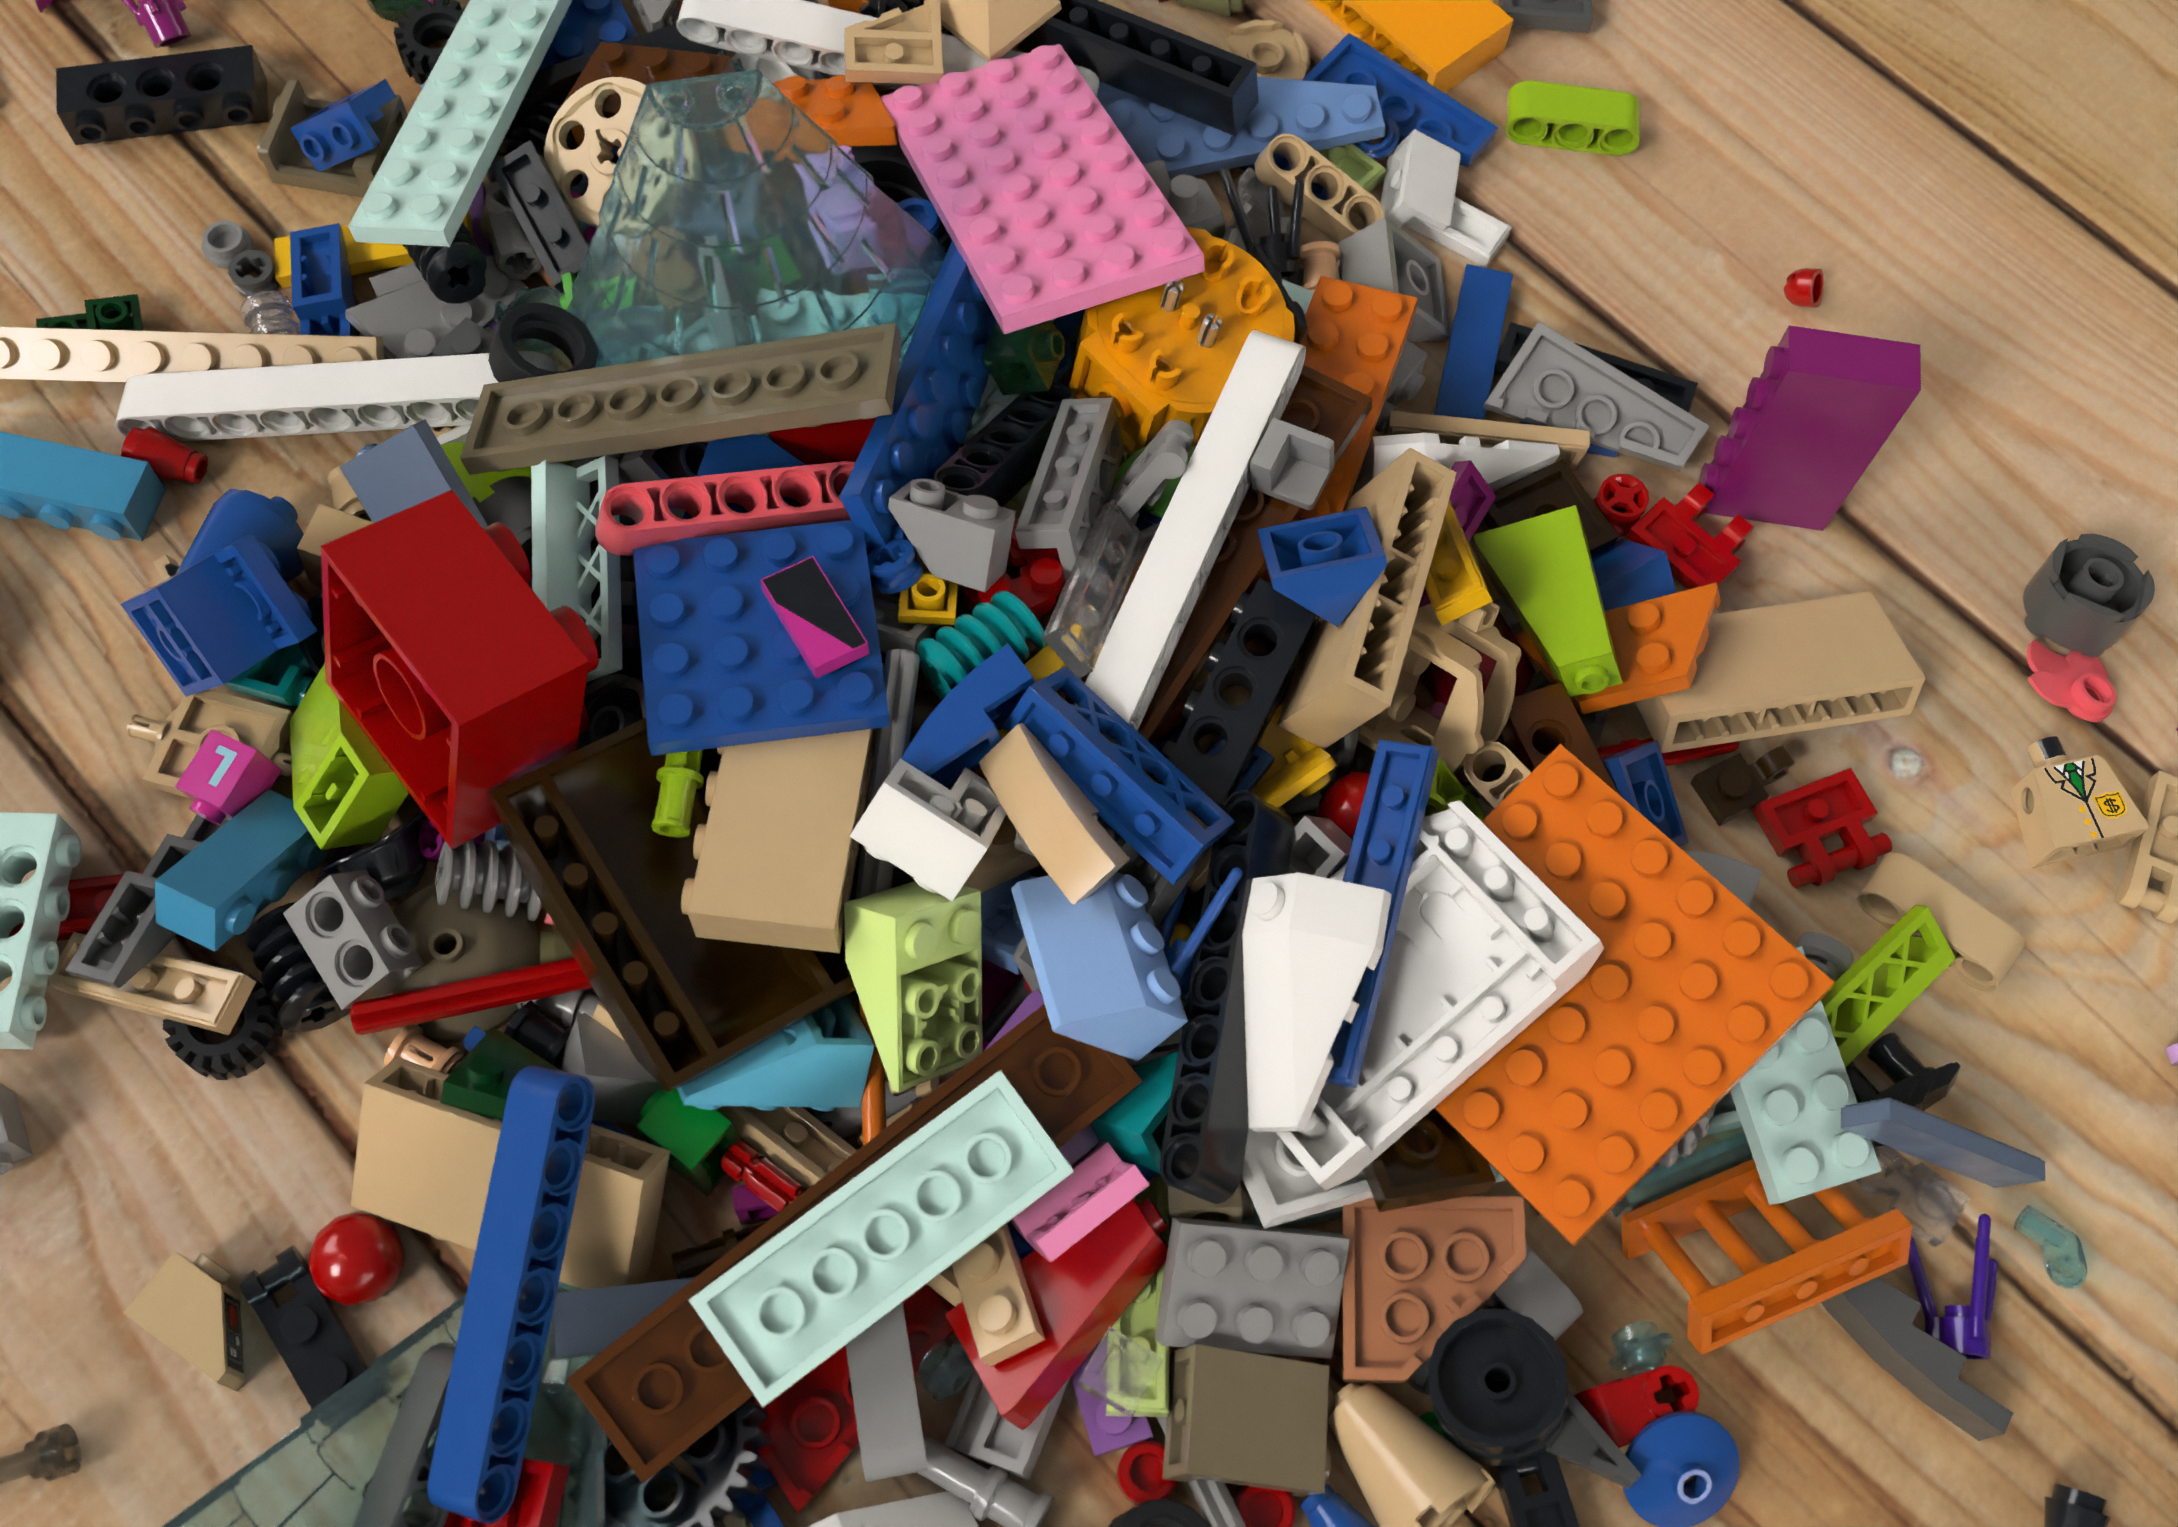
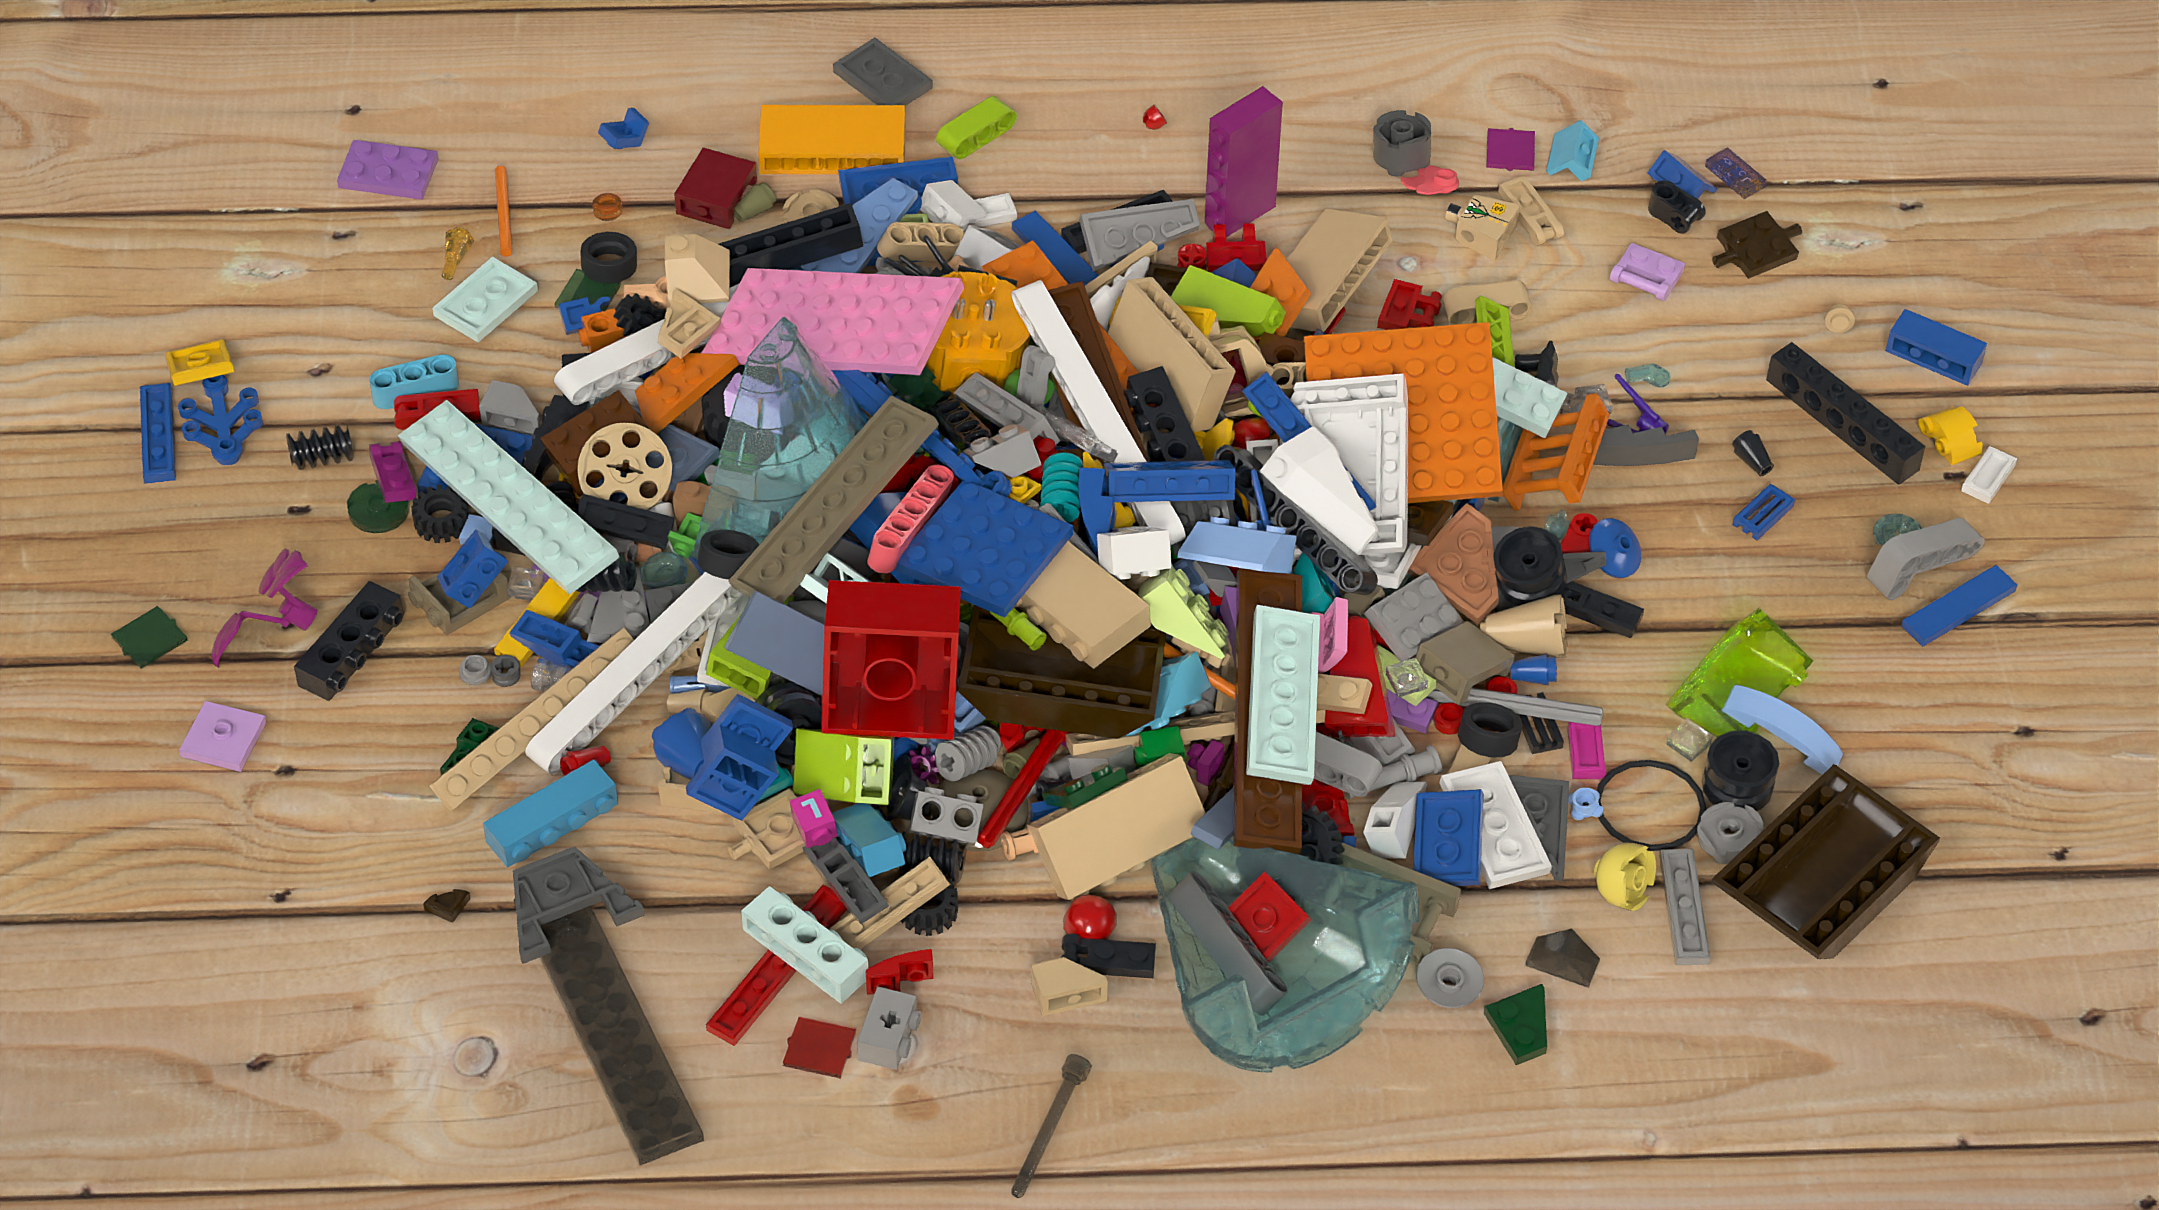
camera: 45 degrees left, 15 degrees down
(60, 1080) = (909, 966): none -> red slope
(511, 1294) = (1184, 827): blue beam -> none
(761, 1176) = (1209, 743): red axle -> none
(814, 617) = (1004, 515): tile -> none
(1051, 815) = (1166, 510): tan slope -> none
(1292, 464) = (1088, 326): light grey panel -> none
(1324, 561) = (1147, 344): blue slope -> none
(1736, 787) = (1362, 319): dark brown plate -> none
(1942, 1143) = (1576, 365): sand blue tile -> none

